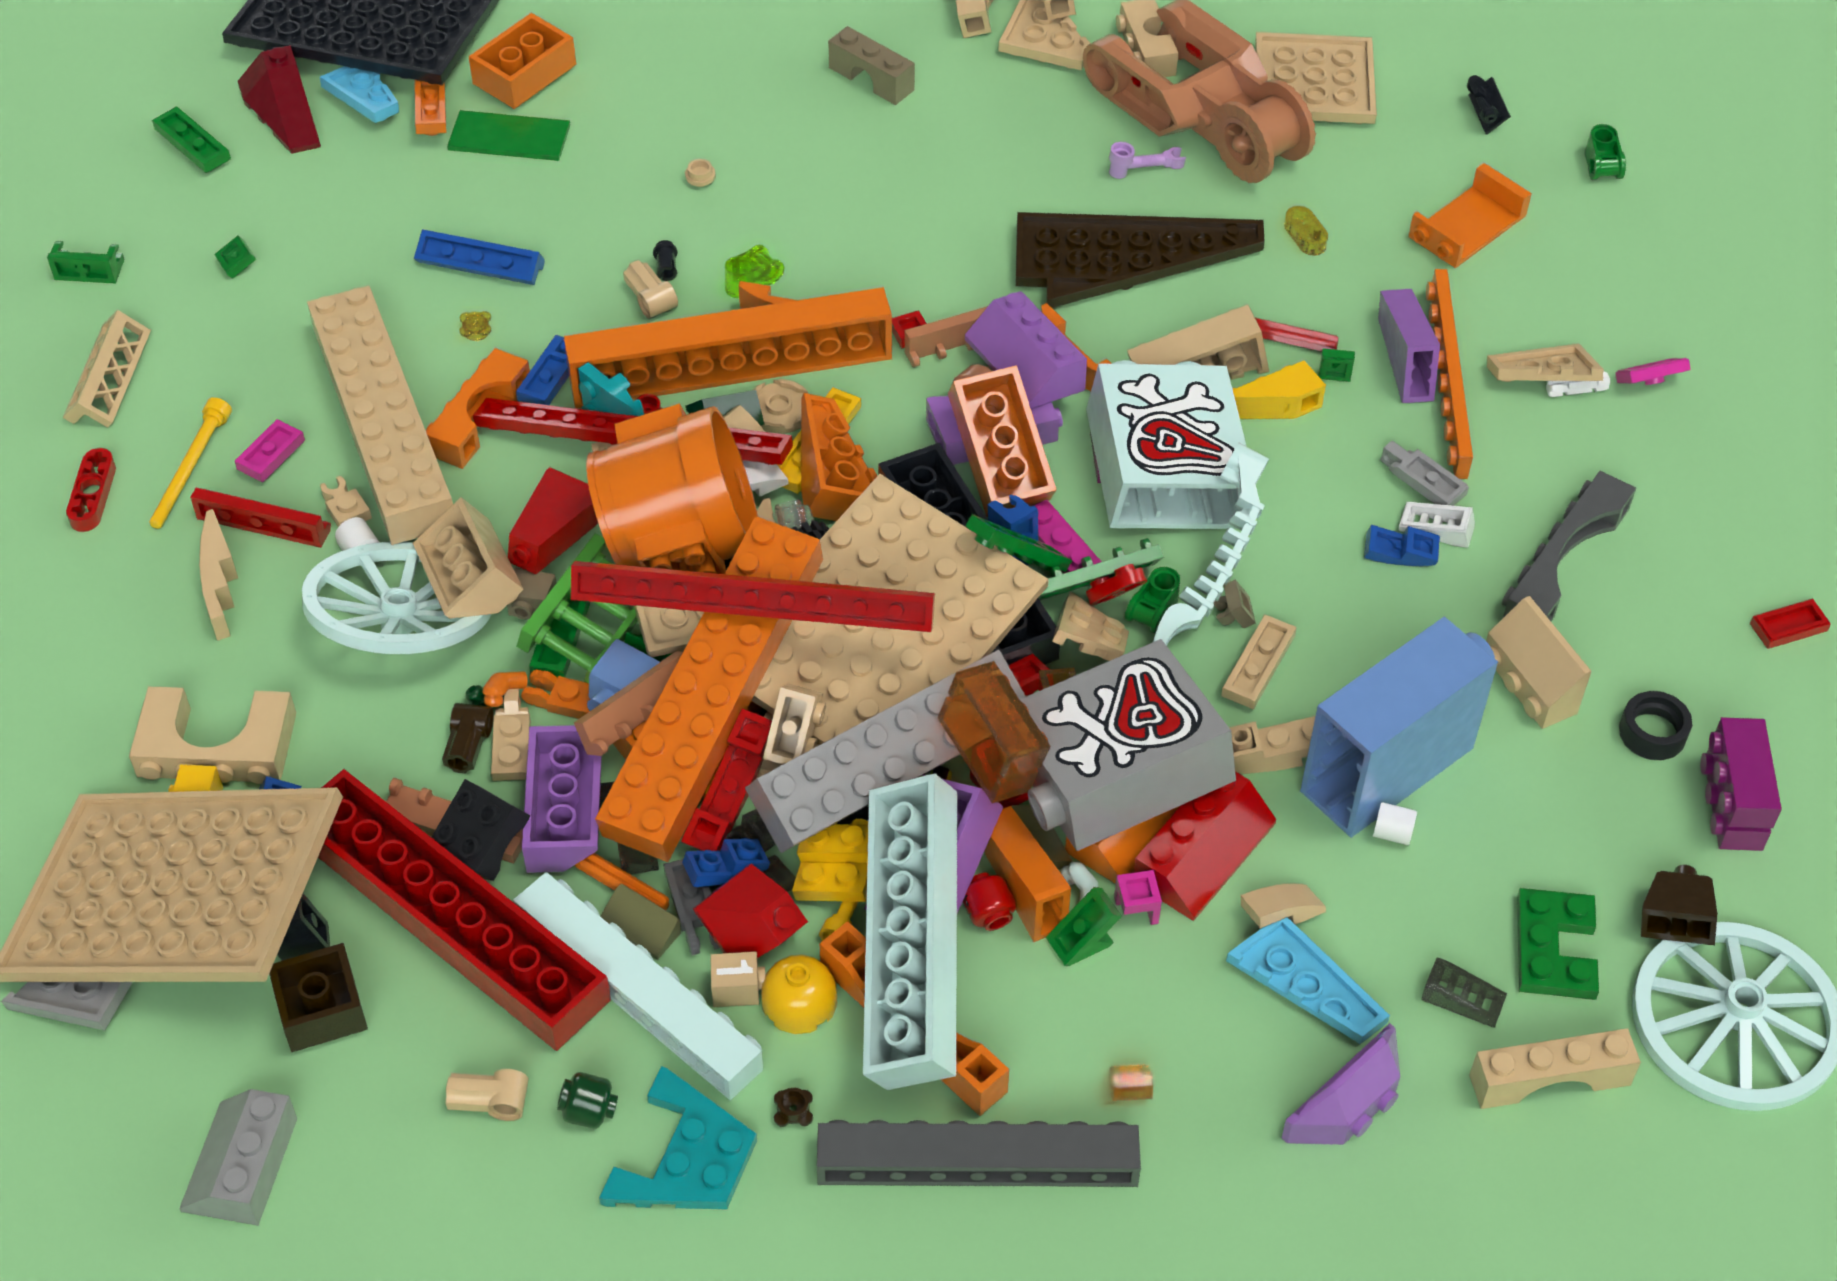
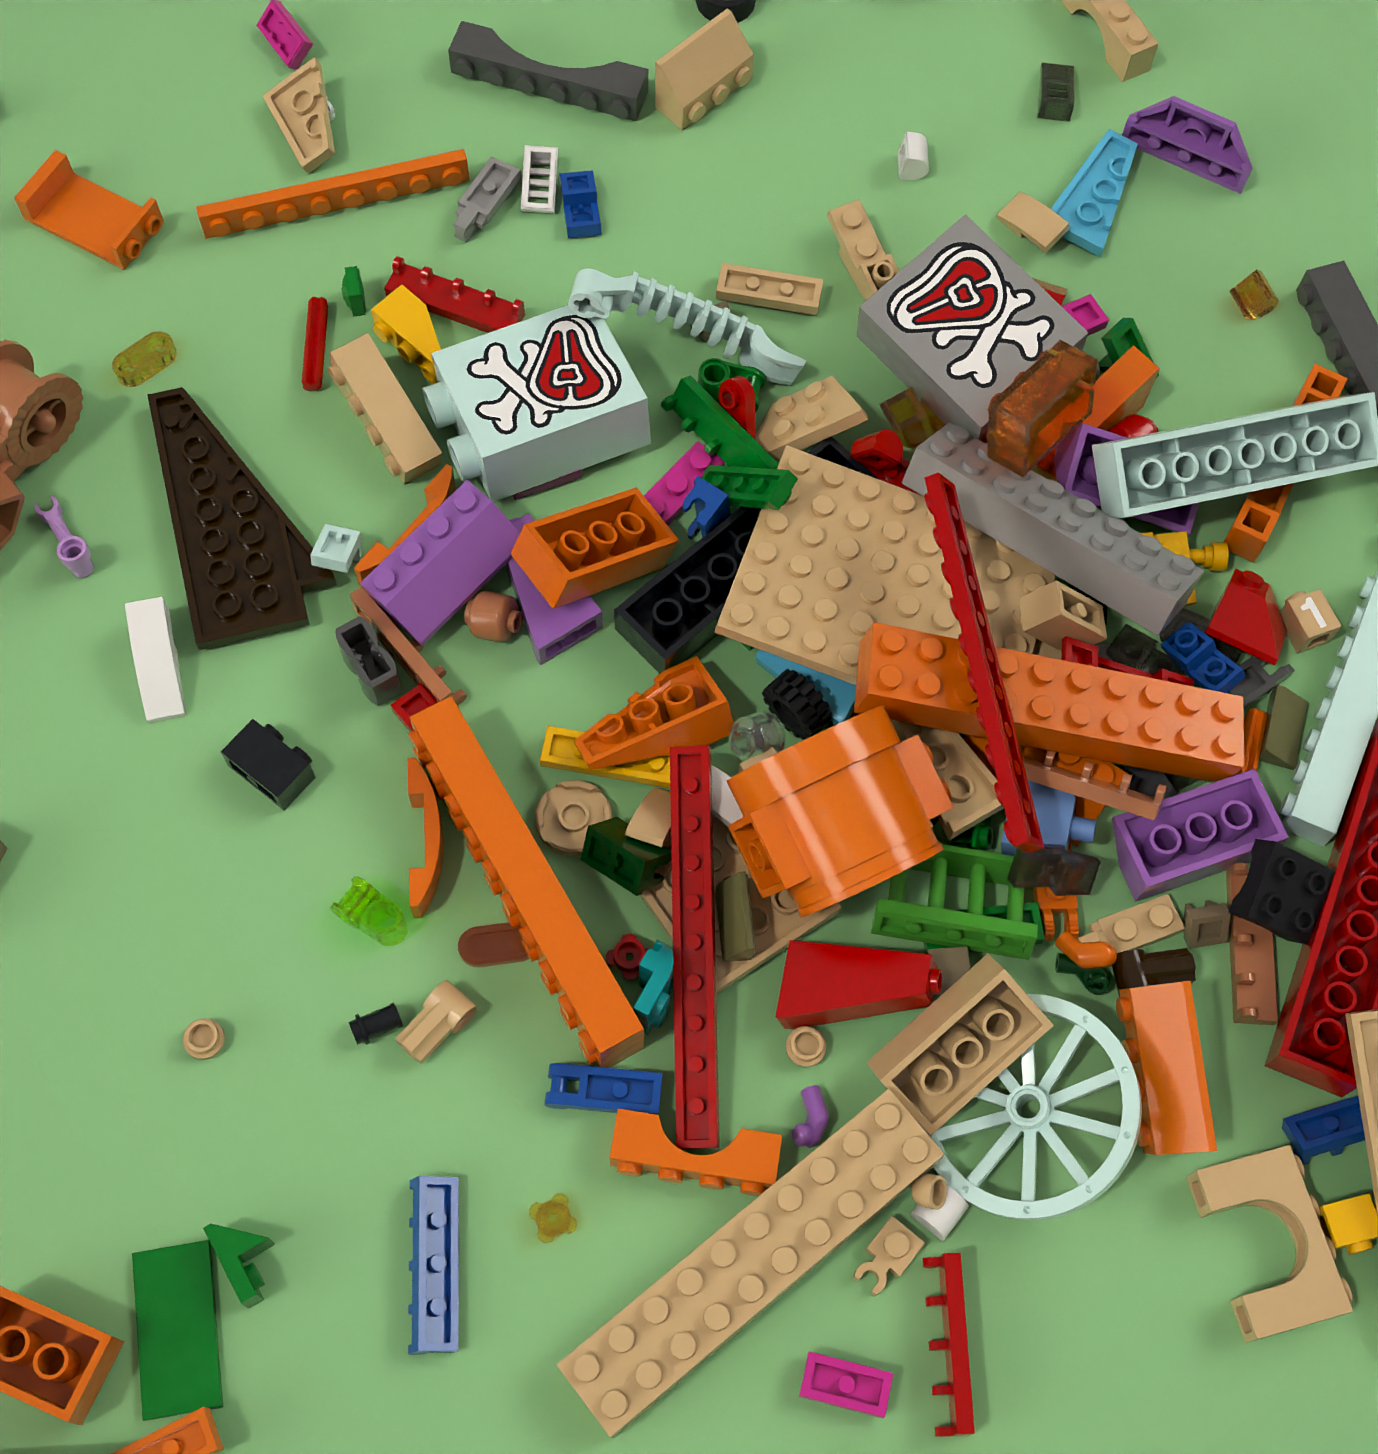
camera: 110 degrees left, 15 degrees up
(215, 571) = (1044, 1359): tan slope -> none
(360, 521) = (929, 1191): none -> tan hinge
(377, 697) = (1169, 1068): none -> orange slope
(467, 486) = (816, 1121): none -> medium lavender arm
(489, 780) = (1206, 924): none -> dark tan tile
(520, 494) = (805, 1046): none -> tan plate
(536, 159) = (233, 1250): none -> green slope
(573, 679) = (1055, 868): none -> clear smoke slope
(799, 994) = (1293, 564): yellow cylinder -> none
(897, 236) = (269, 763): none -> black brick
(958, 296) = (368, 660): none -> dark grey brick
(1014, 190) = (155, 659): none -> white slope
(1026, 652) = (878, 449): none -> red brick
(1071, 300) = (337, 548): none -> light aqua bracket
(1314, 434) = (454, 299): none -> red hinge
(1398, 725) = (847, 131): medium blue brick -> none
(1409, 344) = (306, 229): medium lavender slope -> none
(1541, 967) = (1001, 44): green plate -> none

